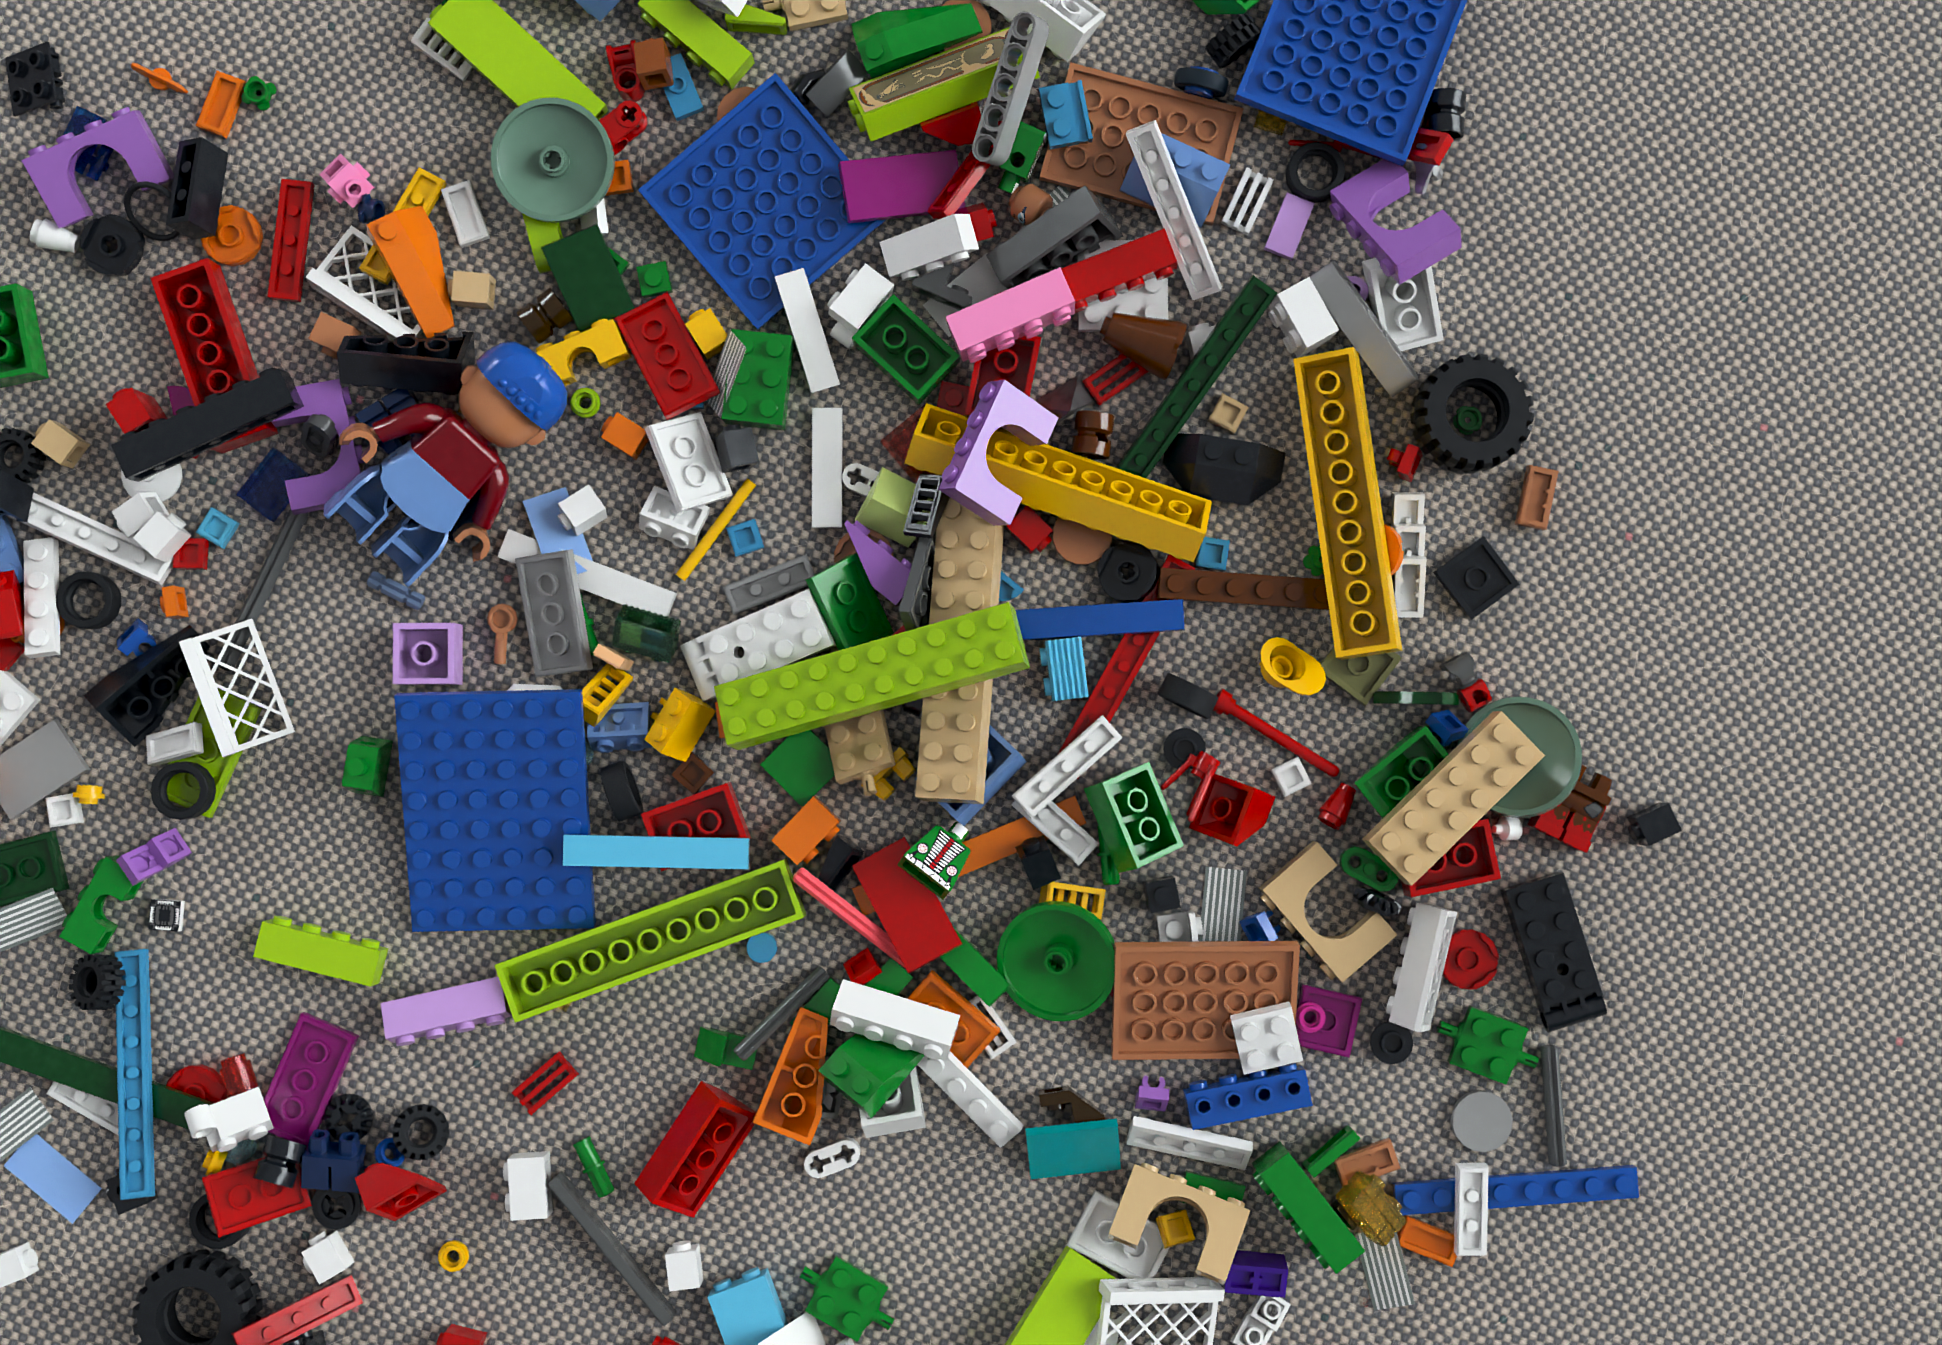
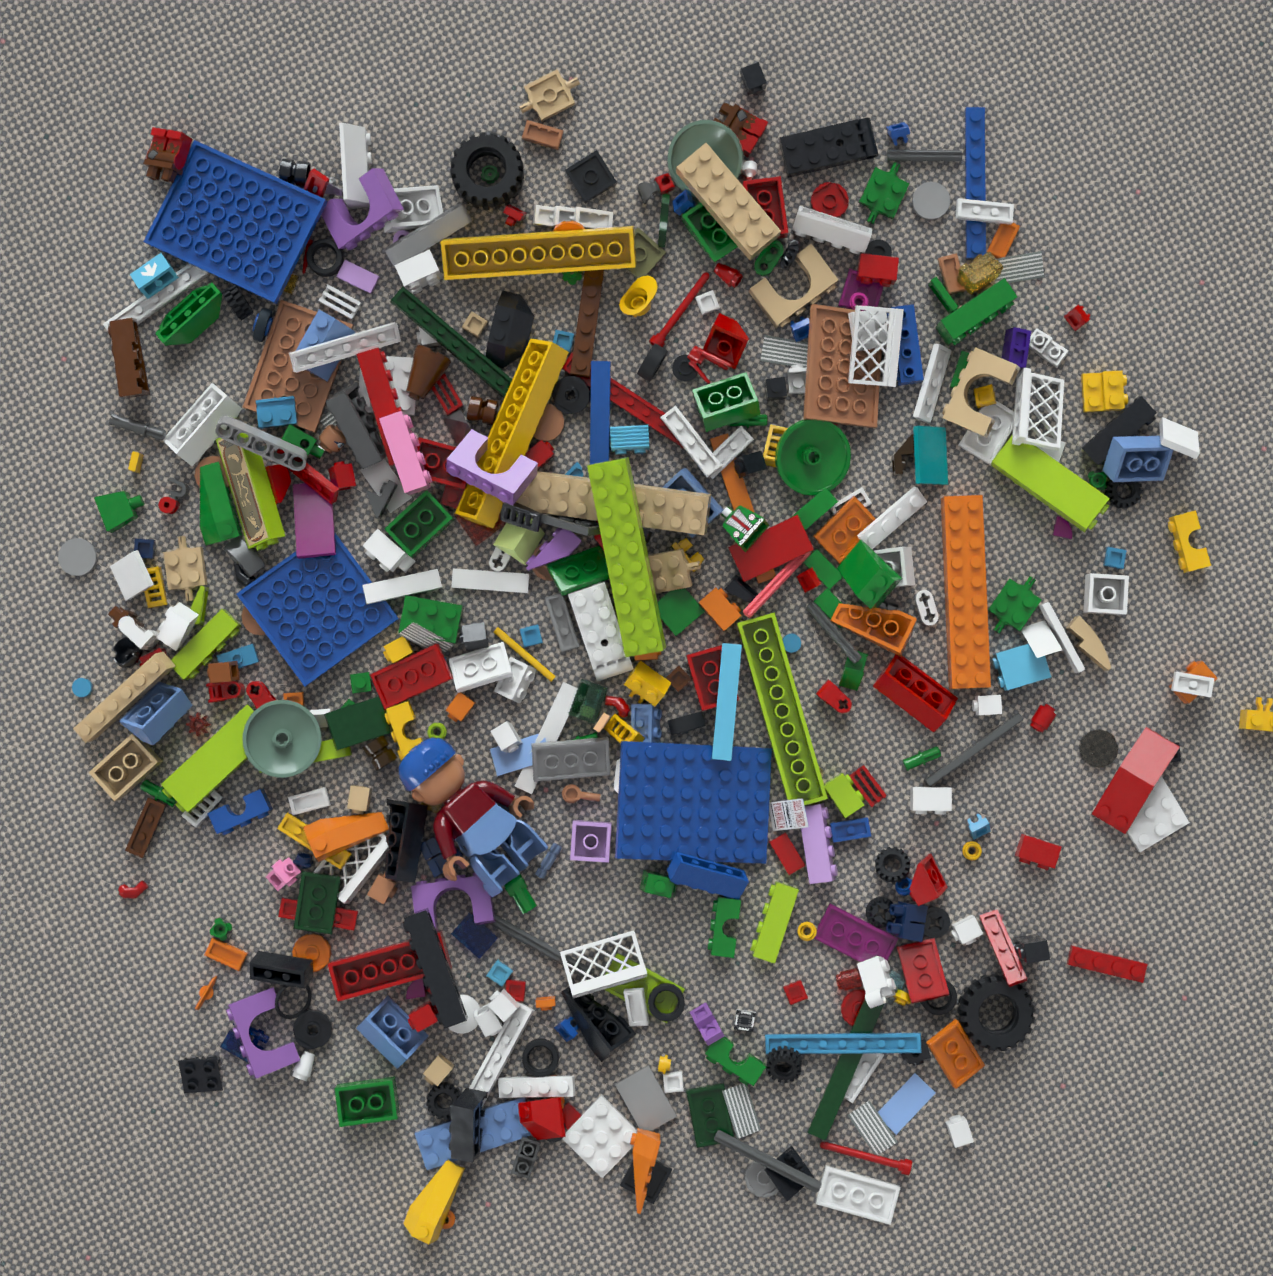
camera: 85 degrees left, 0 degrees up
(111, 361) = (390, 1032): none -> medium blue slope
(129, 1252) = (955, 1054): none -> orange tile
(215, 991) = (795, 992): none -> red tile
(280, 1161) = (904, 953): black wheel -> none
(303, 997) = (802, 927): none -> yellow plate
(305, 236) = (317, 902): none -> dark green tile
(318, 435) = (446, 901): dark grey plate -> none
(336, 874) = (724, 909): none -> green arch
(339, 551) = (518, 890): none -> green piece
(381, 840) = (707, 876): none -> blue brick
(428, 86) = (256, 806): none -> blue arch
(430, 963) = (787, 853): none -> red tile
(473, 1061) = (850, 829): none -> blue plate
(486, 962) = (788, 814): none -> white sticker
(489, 1266) = (978, 828): none -> dark azure tile
(526, 1046) = (844, 795): none -> lime brick
(564, 30) = (203, 720): none -> clear red gear
(647, 684) = (620, 705): none -> red arm
(682, 1018) = (832, 694): none -> red piece
(858, 1219) = (965, 592): none -> orange brick
(894, 1020) = (842, 560): white brick -> none
(929, 246) = (355, 503): white brick -> none
(1152, 1097) = (902, 404): medium lavender tile -> none
(1245, 1075) = (891, 349): none -> white fence
(1363, 1043) = (877, 269): none -> red brick
(1470, 204) = (355, 163): none -> white slope
(1589, 1060) = (898, 130): none -> blue tile
(1600, 503) = (549, 95): none -> tan plate

